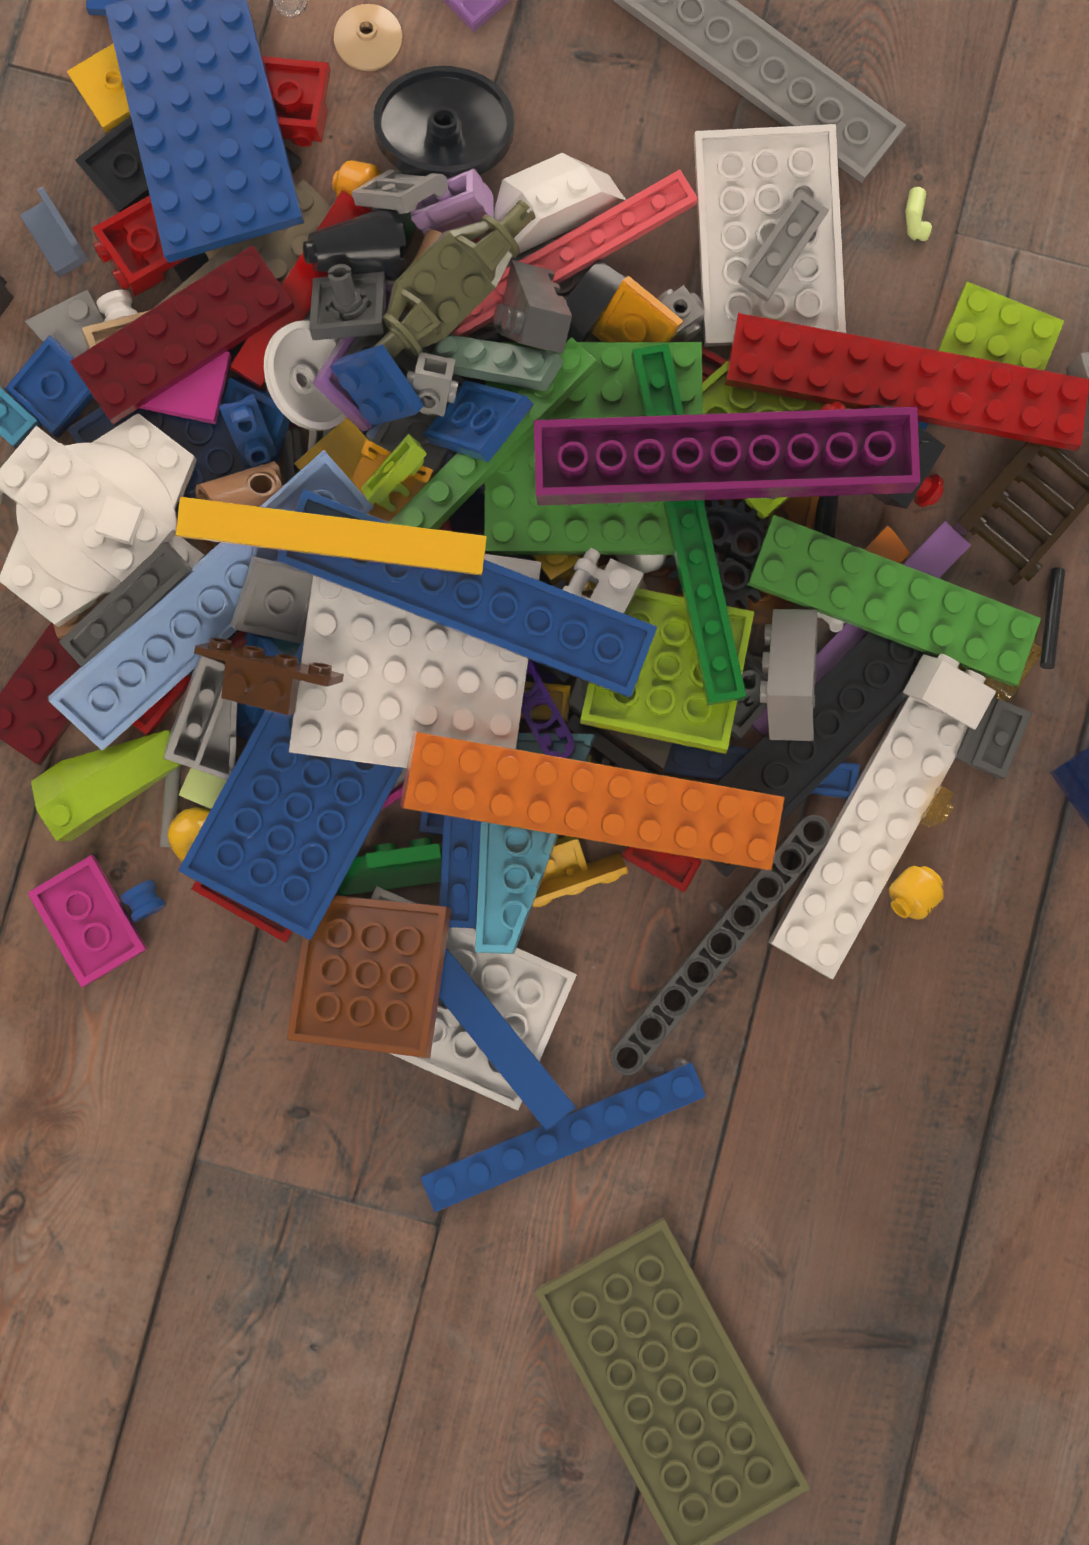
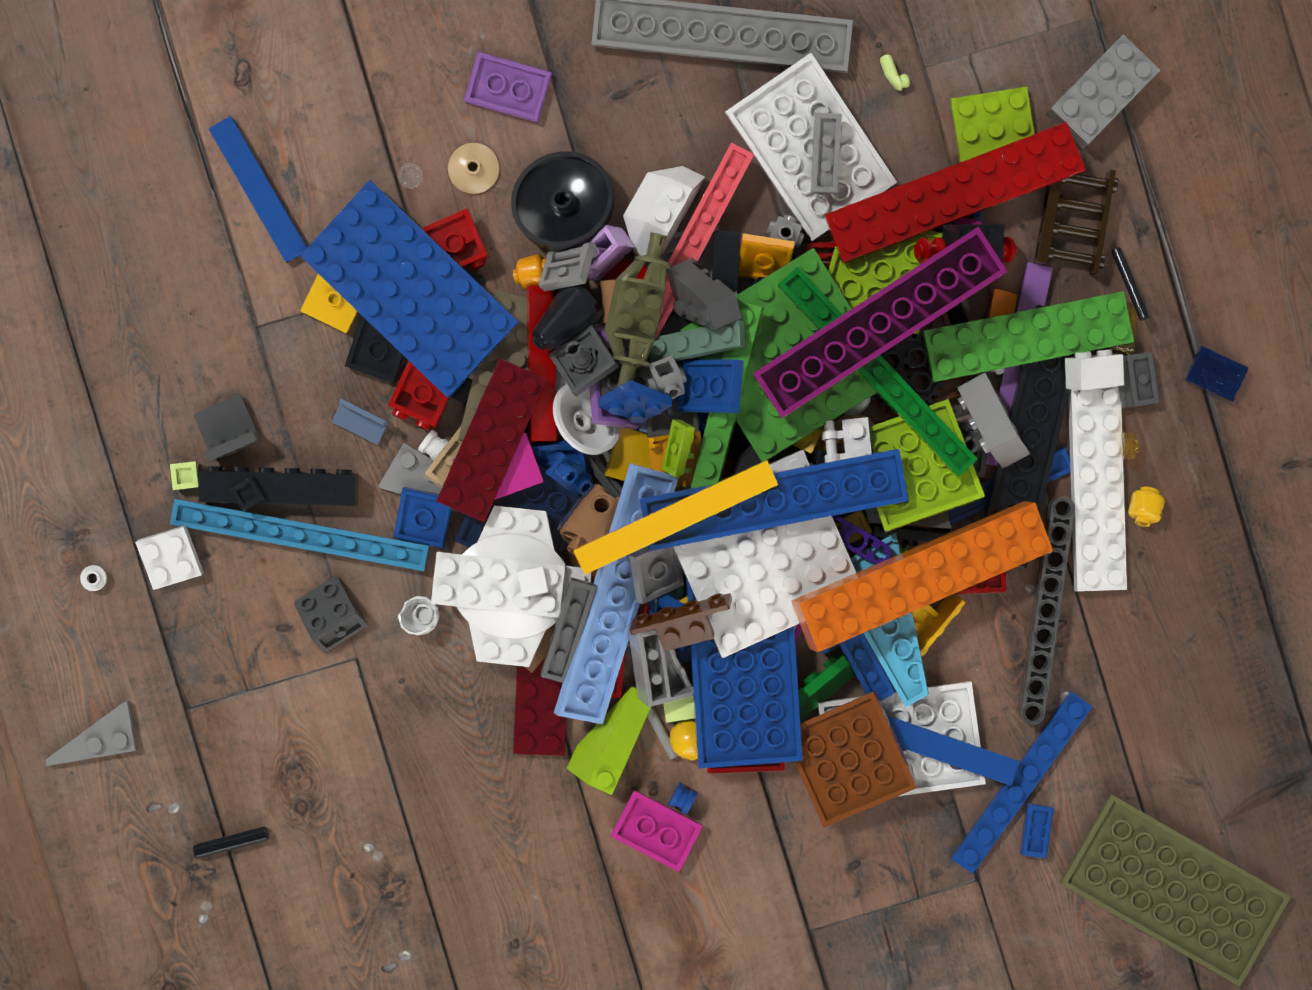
camera: 25 degrees left, 5 degrees up
(545, 1207) = (1036, 830): none -> blue plate

